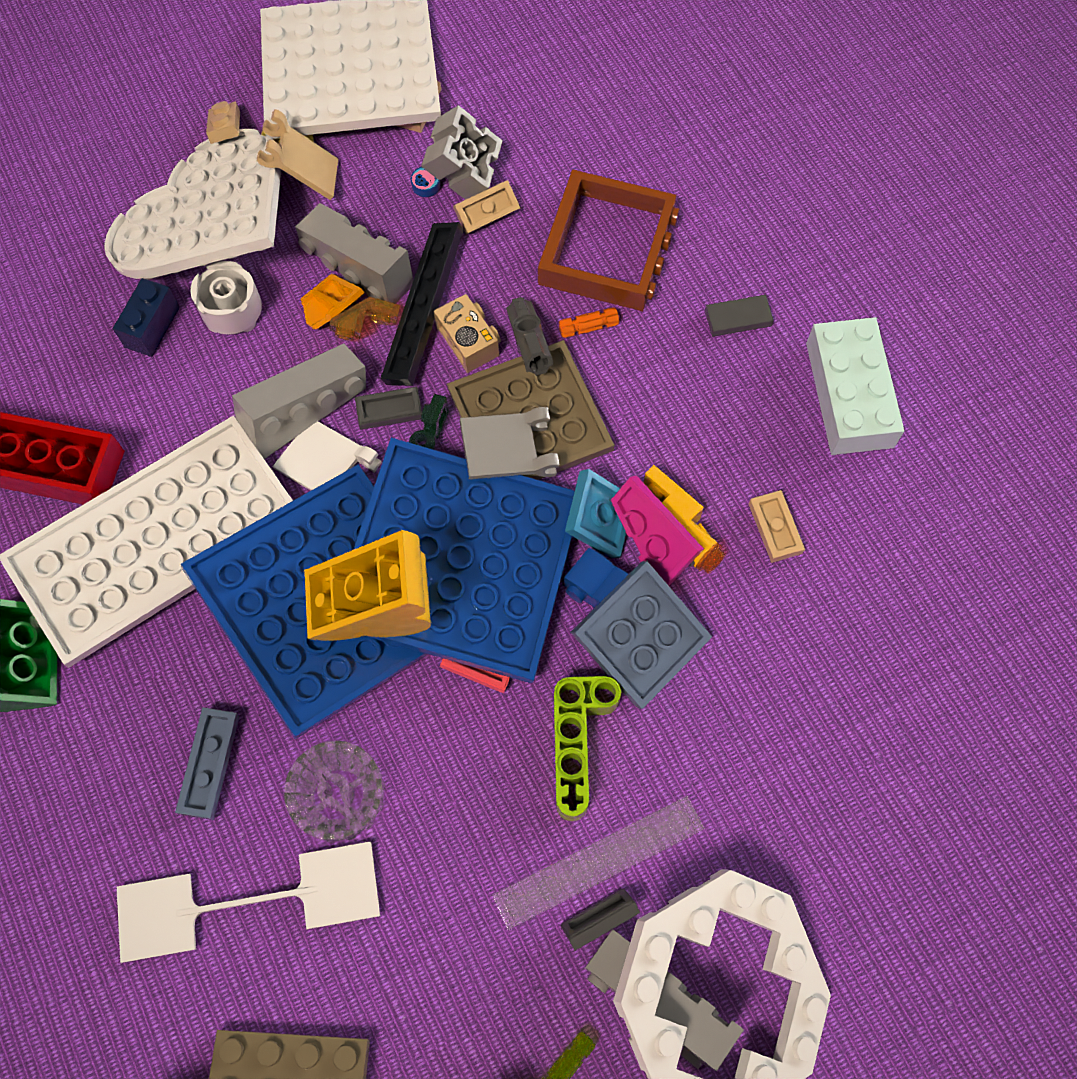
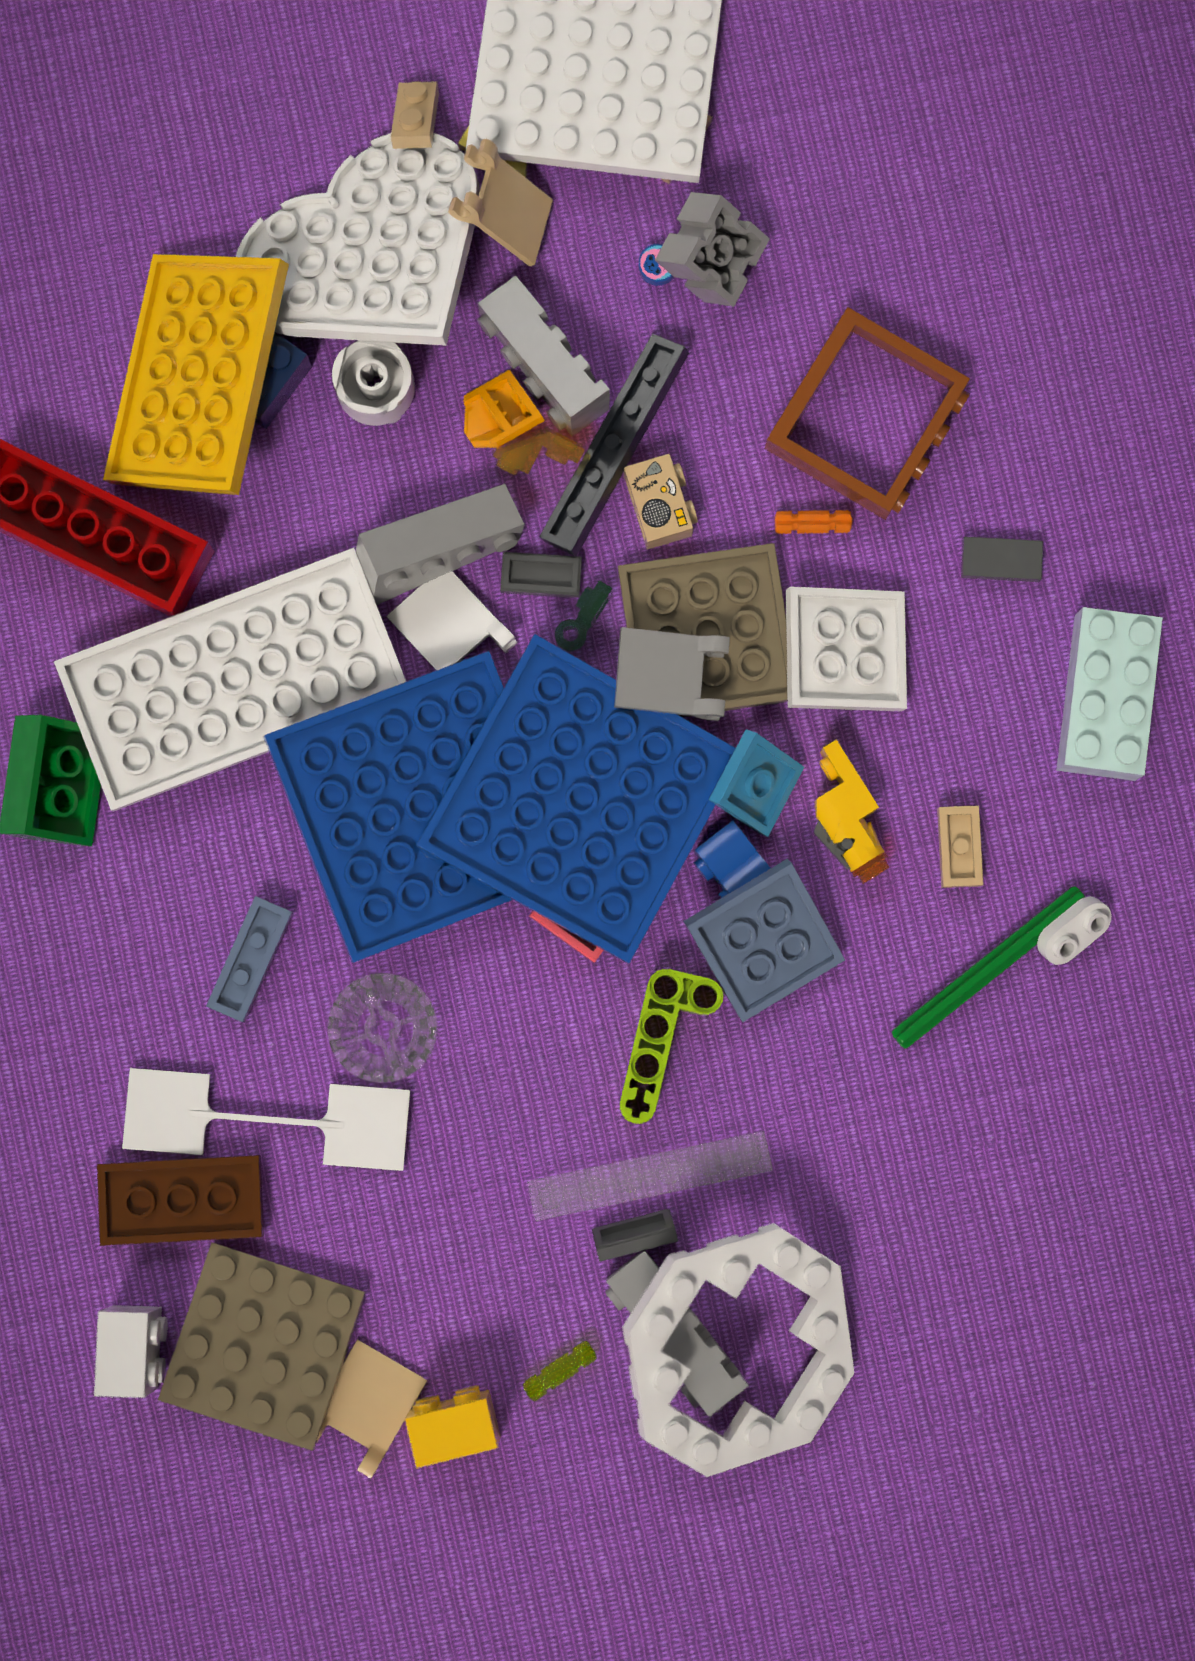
camera: 15 degrees right, 15 degrees up
(84, 321) = (196, 373): none -> yellow plate
(180, 997) = (180, 1200): none -> reddish brown plate
(369, 591) = (466, 831): yellow brick -> none
(486, 207) = (726, 327): tan plate -> none
(529, 336) = (732, 547): dark grey piece -> none
(641, 401) = (846, 649): none -> white plate
(655, 530) = (815, 826): dark pink wing -> none
(829, 616) = (982, 972): none -> green axle
(889, 567) = (1074, 930): none -> white plate

